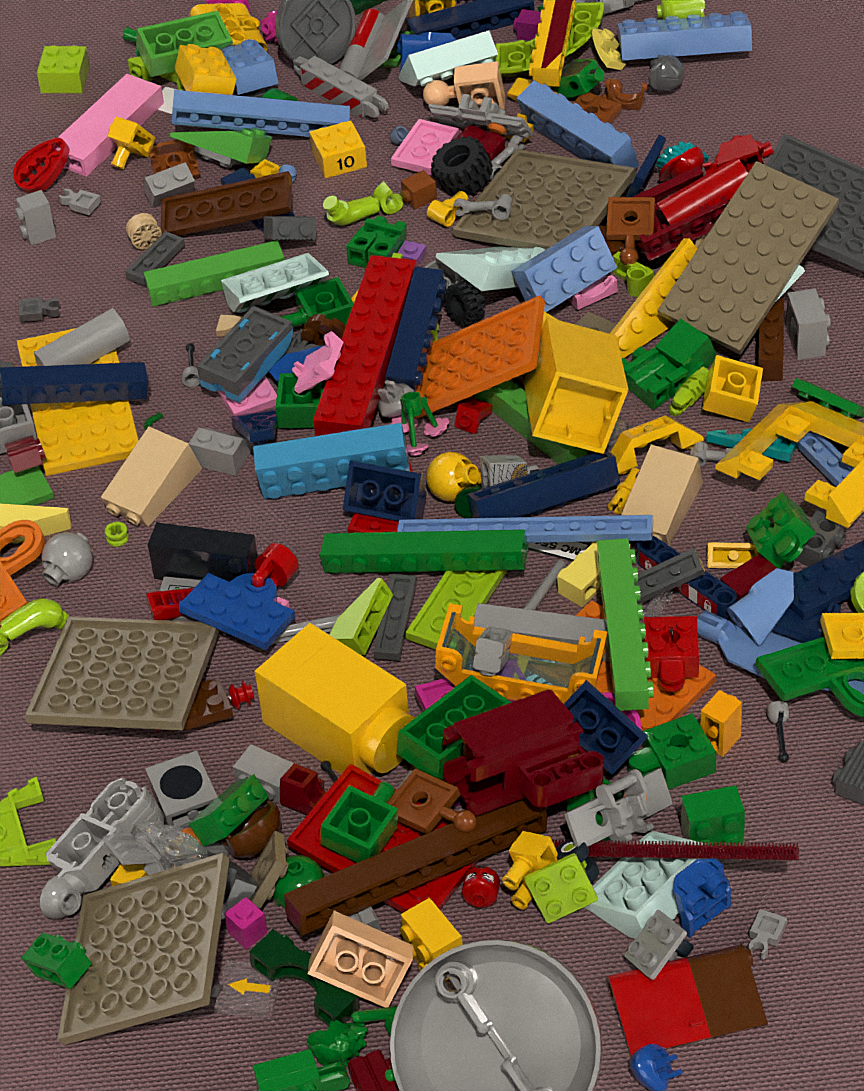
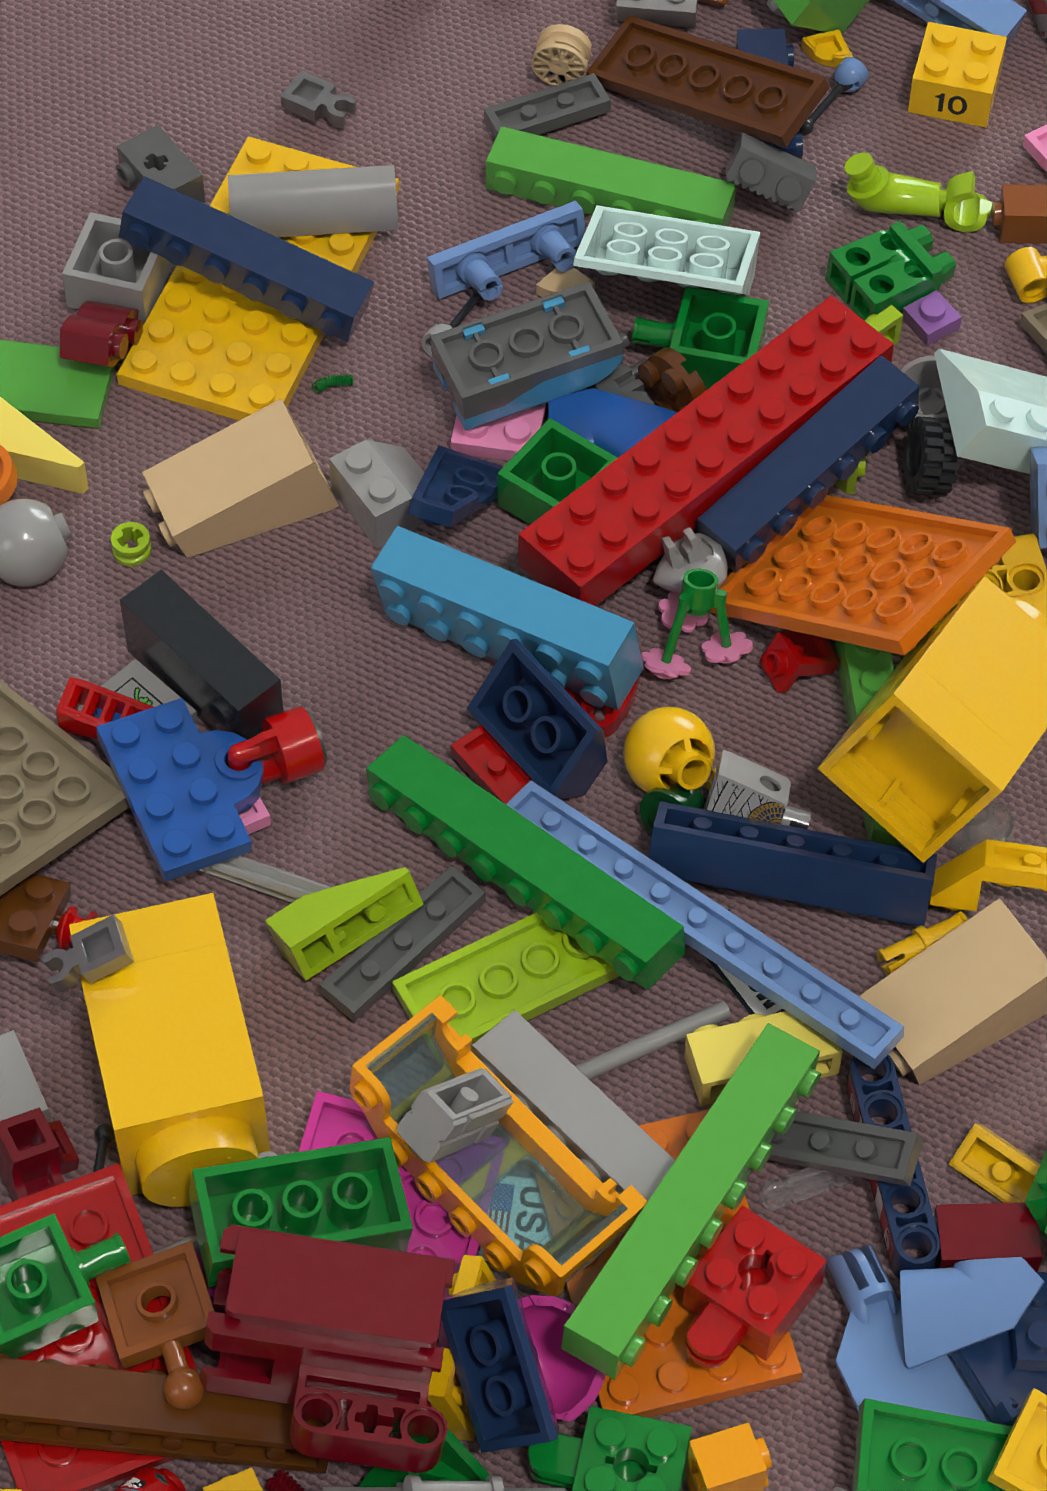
camera: 30 degrees right, 10 degrees up
(186, 328) = (508, 249): none -> medium blue plate
(279, 670) = (94, 954): none -> flat silver plate
(319, 364) = (603, 441): bright pink piece -> none

